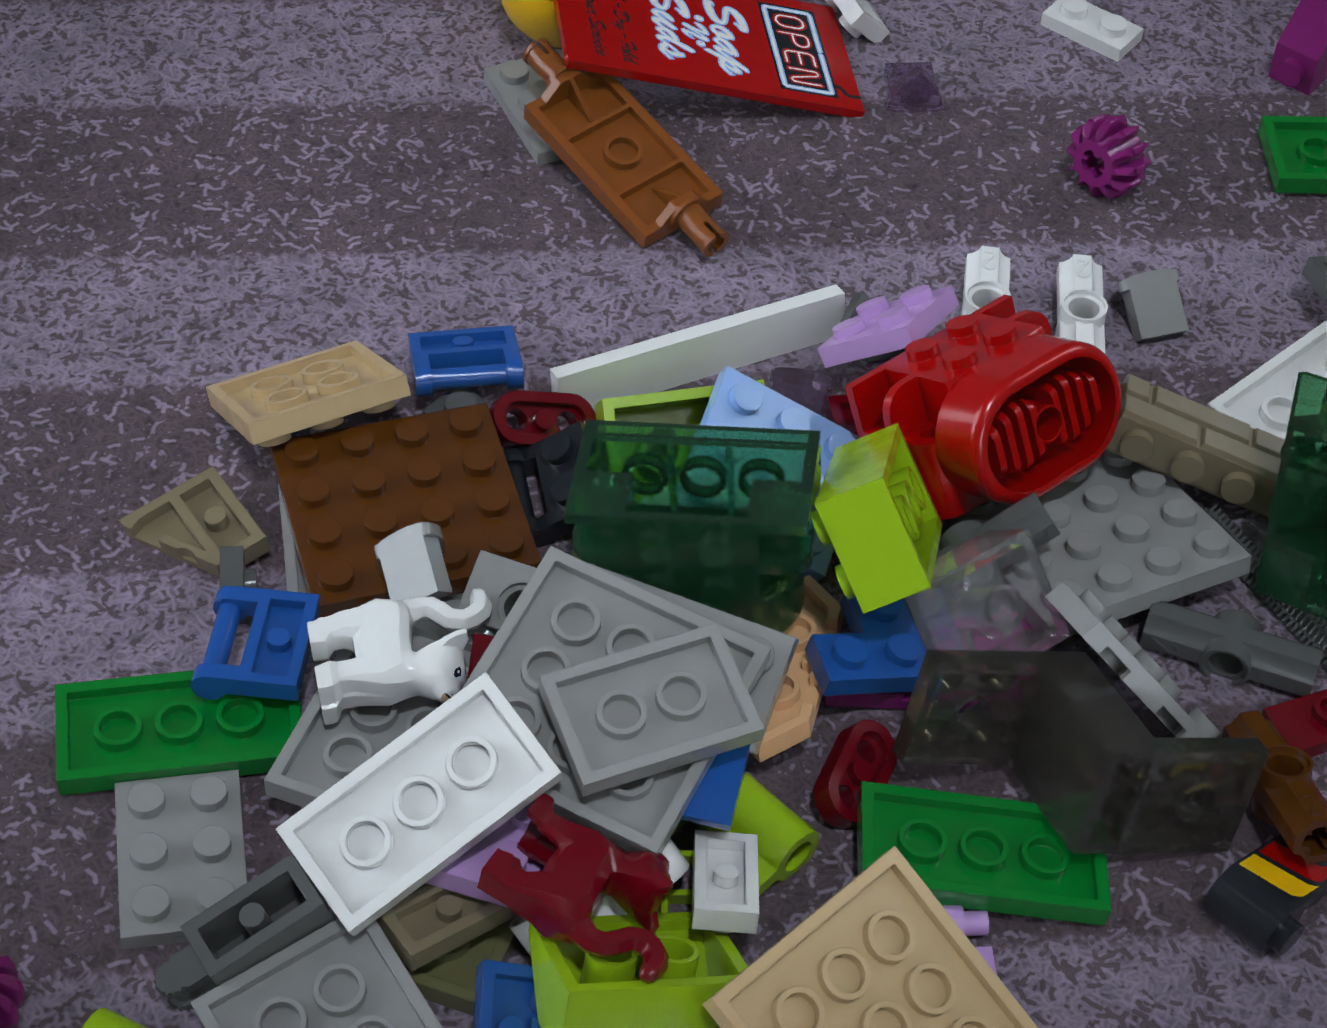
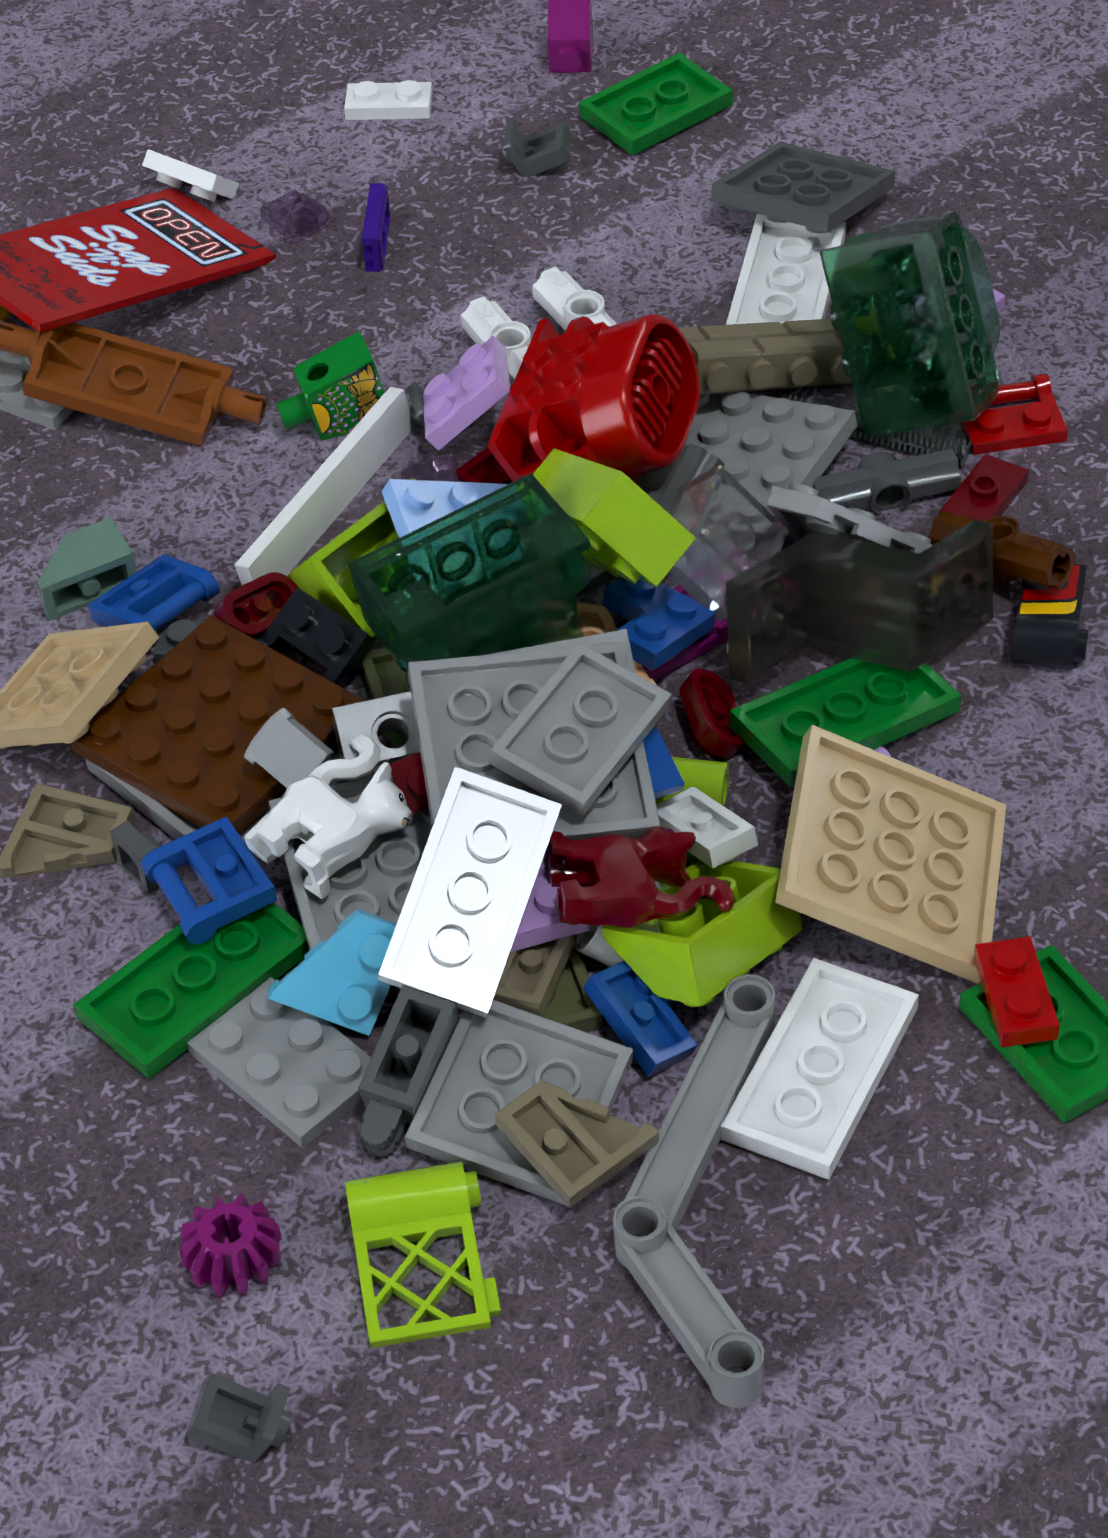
camera: 30 degrees left, 0 degrees up
(265, 798) = (341, 974): none -> medium azure wing
(433, 298) = (85, 568): none -> sand green slope
(786, 257) = (335, 389): none -> green torso
(968, 134) = (376, 227): none -> dark purple tile
(1108, 155) = (499, 188): magenta gear -> none
(1153, 304) = (623, 280): light grey tile -> none
(1181, 142) = (539, 151): none -> dark grey bracket

